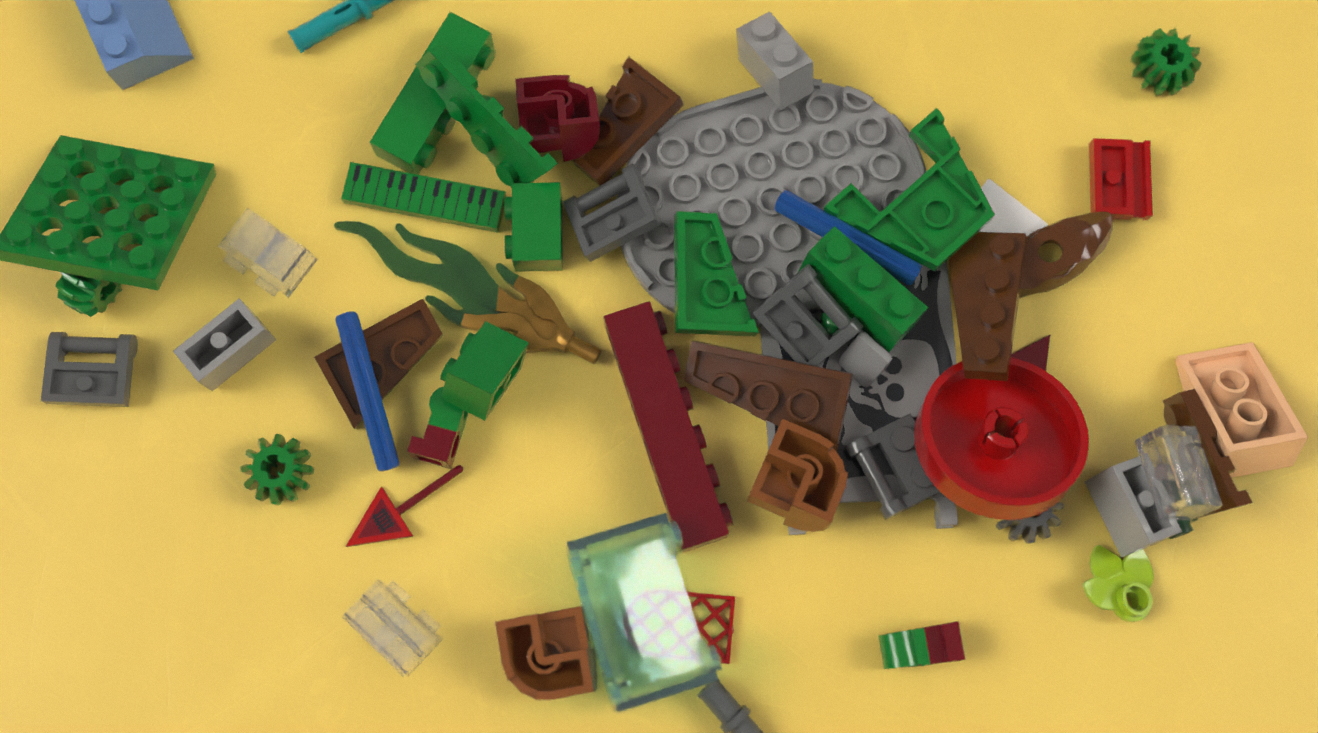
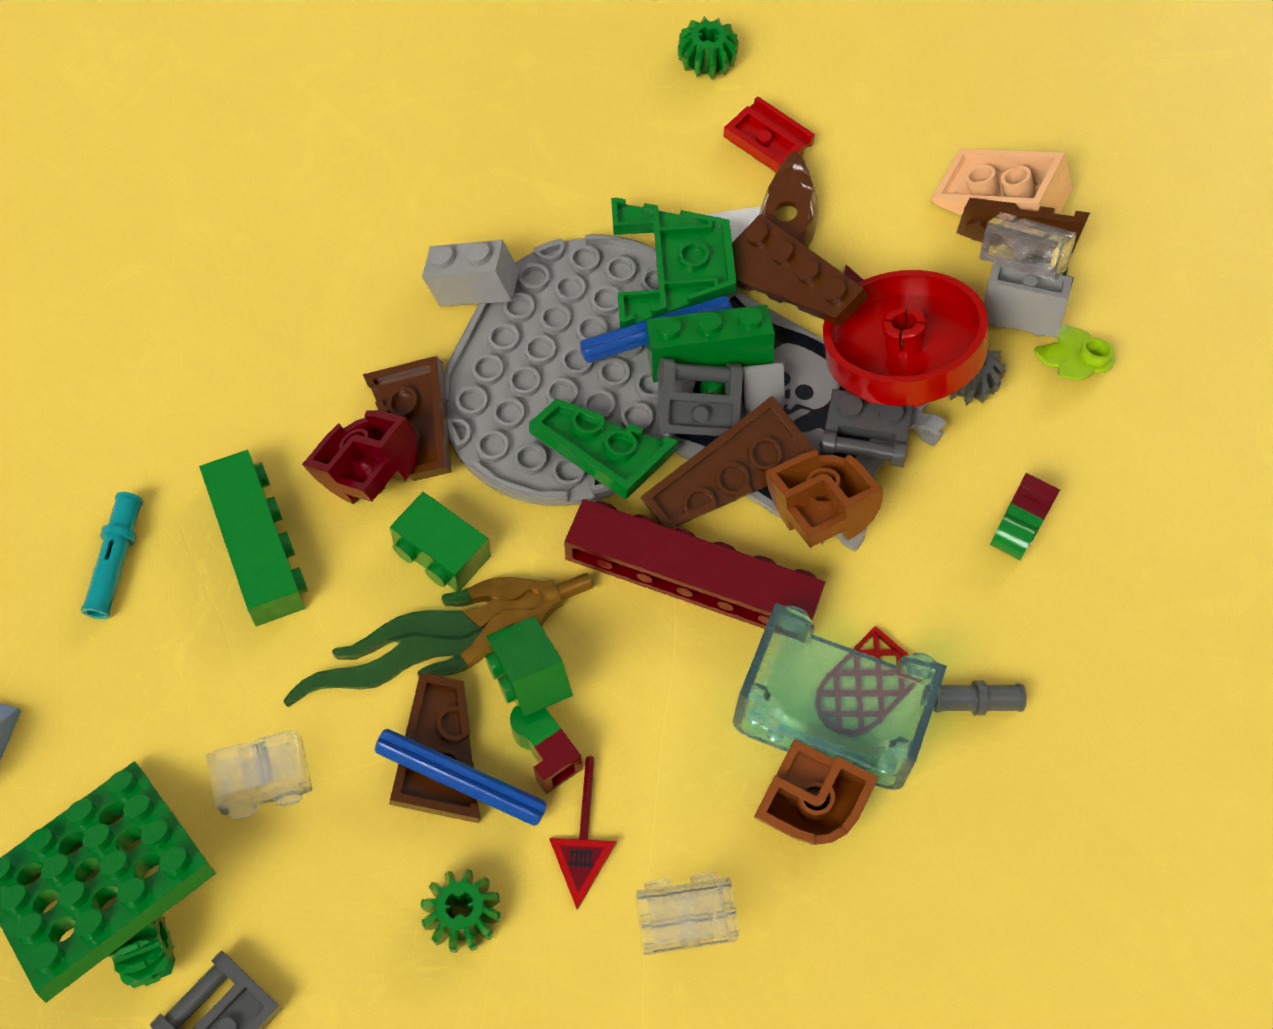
camera: 50 degrees left, 15 degrees down
(224, 345) = (310, 867): light grey brick -> none
(423, 197) = (328, 613): green tile -> none
(483, 119) = (319, 503): green wing -> none
(616, 221) = (493, 477): dark grey plate -> none

